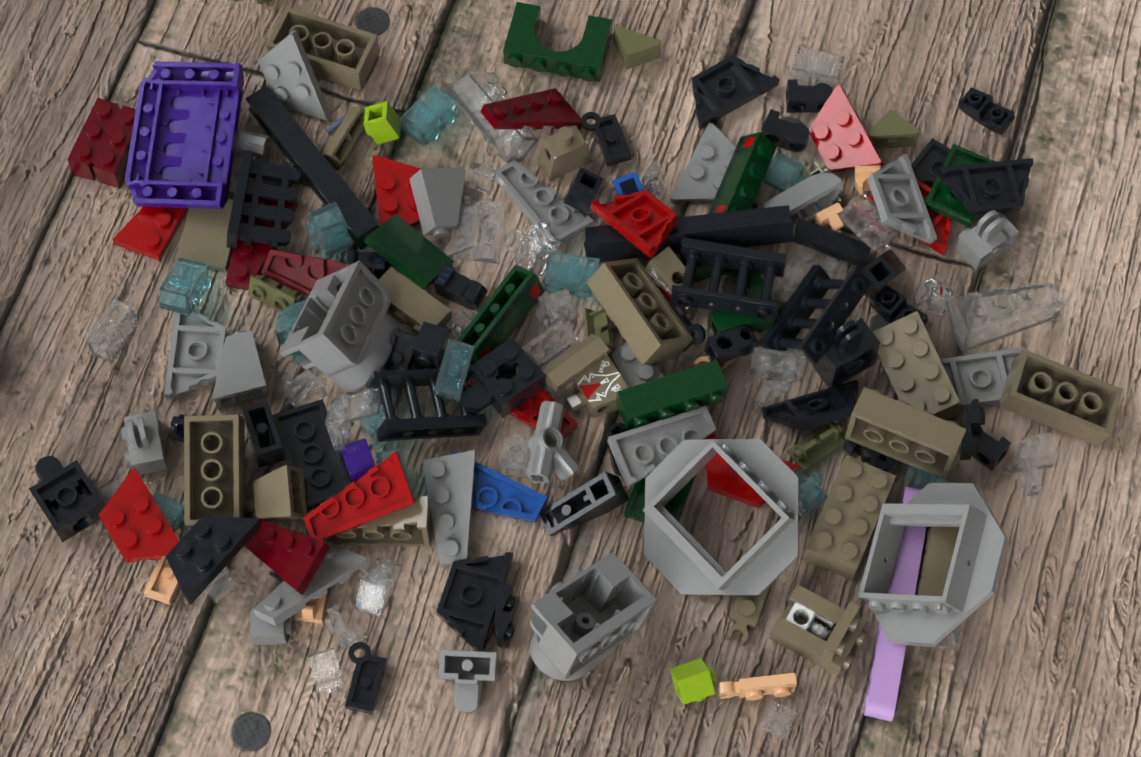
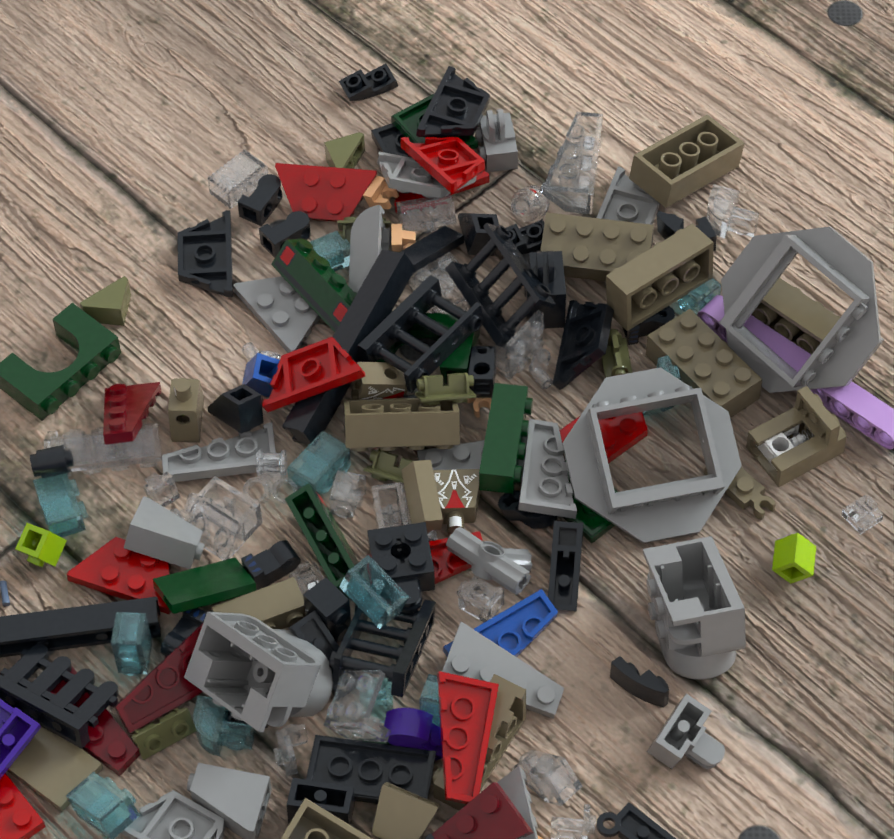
camera: 60 degrees left, 10 degrees down
(342, 134) = (26, 584): dark tan piece -> none
(450, 86) = (51, 461): none -> black brick
(472, 596) = (605, 700): black wing -> none
(609, 137) = (191, 366): black hinge -> none
(691, 334) = (456, 389): none -> olive hinge
(756, 687) = (826, 515): light nougat plate -> none
(923, 207) = (446, 160): none -> red wing

